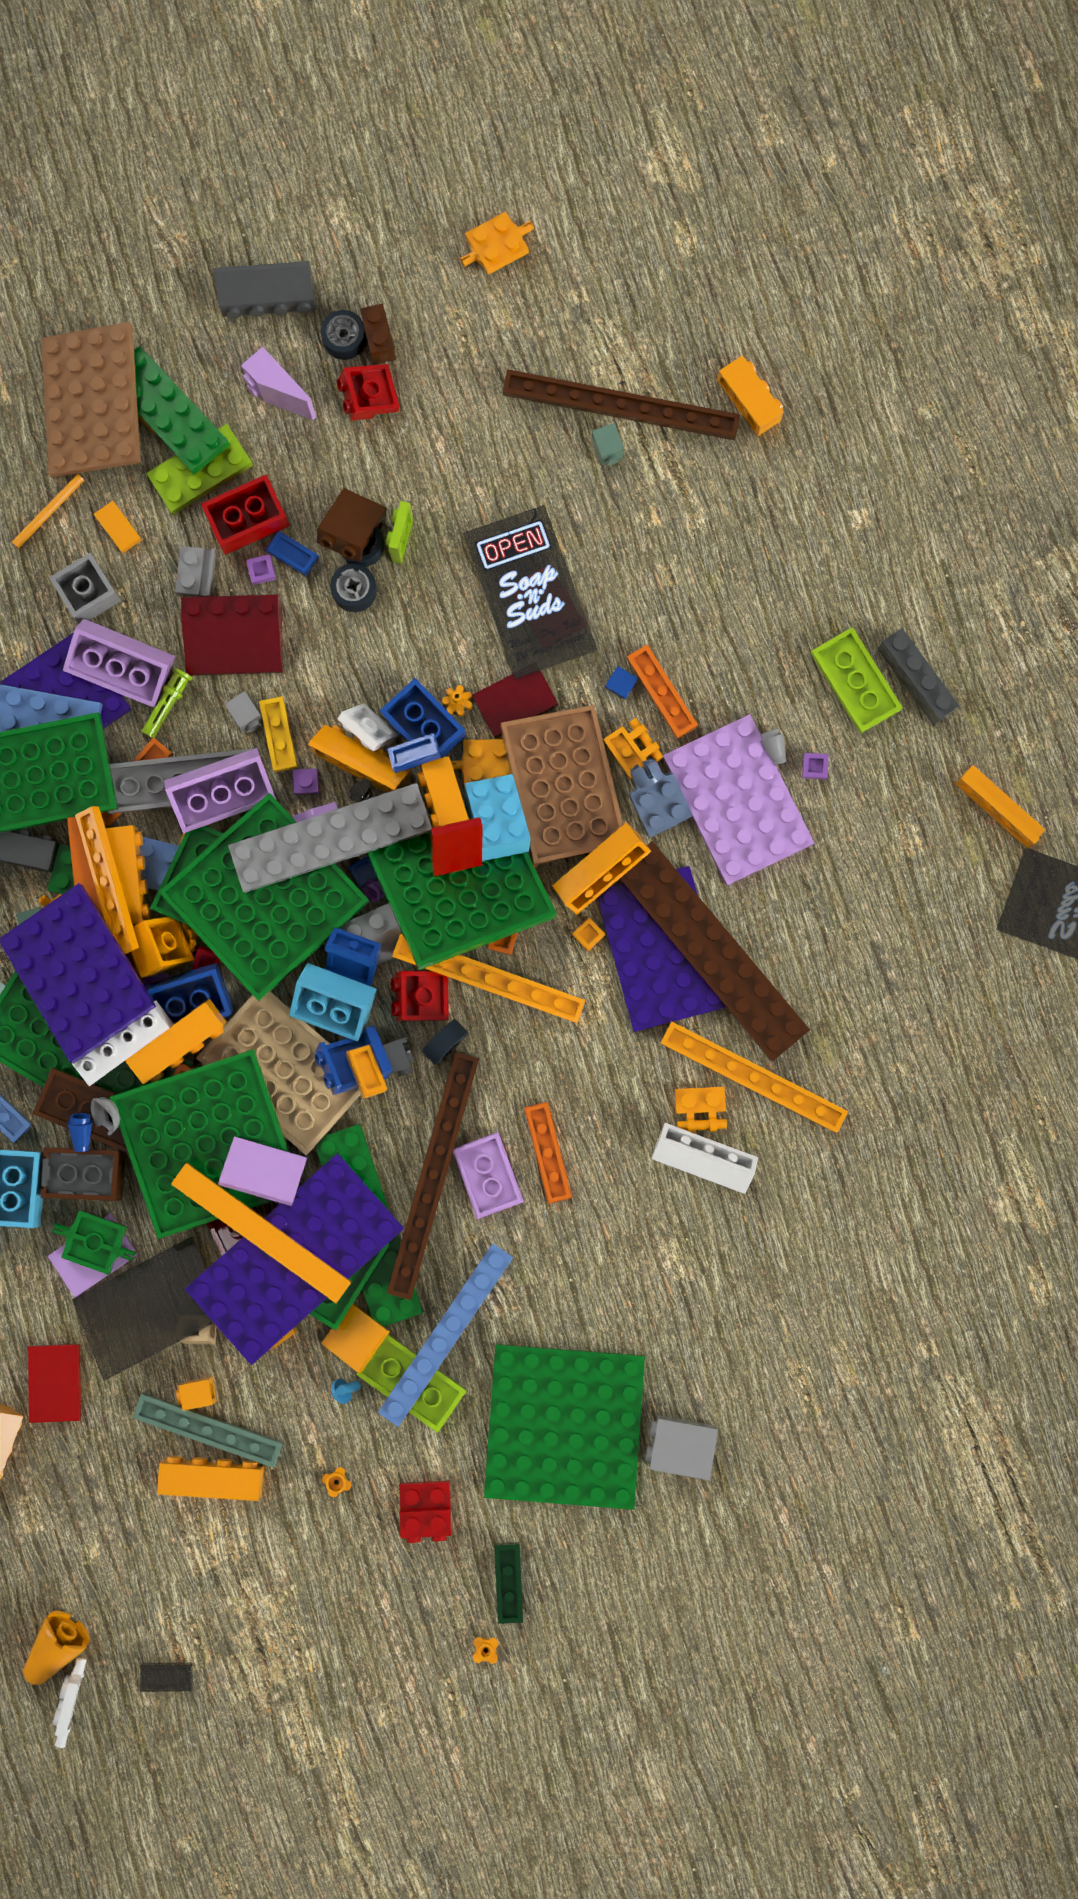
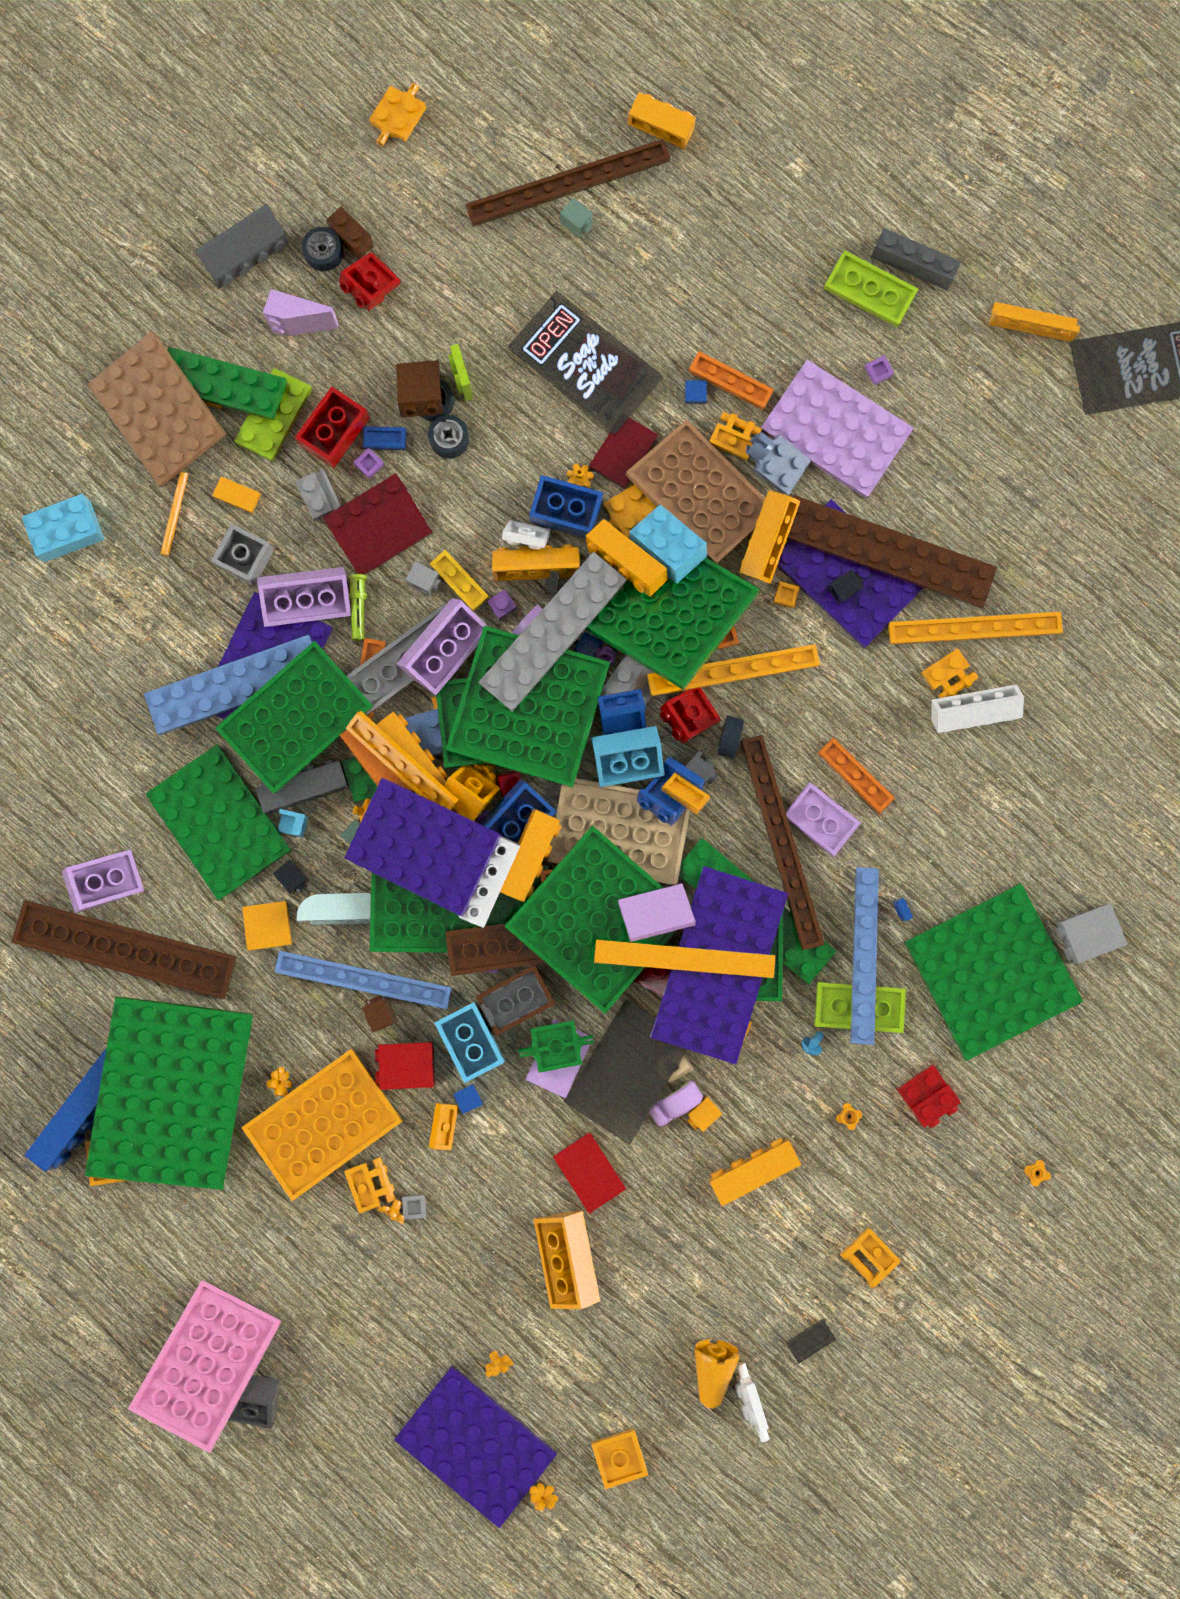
camera: 35 degrees left, 0 degrees up
(80, 1131) = (497, 966): blue cone -> none
(99, 1111) = (504, 946): light grey piece -> none
(176, 1367) = (676, 1103): none -> lavender animal
(208, 1430) = (729, 1136): sand green plate -> none
(280, 1629) = (876, 1252): none -> light orange plate
(356, 1338) = (799, 1000): light orange tile -> none
(414, 753) = (576, 531): tile -> none
(456, 846) = (657, 579): red tile -> none
(508, 1583) = (1024, 1112): dark green plate -> none
(511, 1311) = (902, 909): none -> blue tile
(647, 962) = (846, 587): none -> black brick
(774, 746) = (840, 372): light grey cone -> none

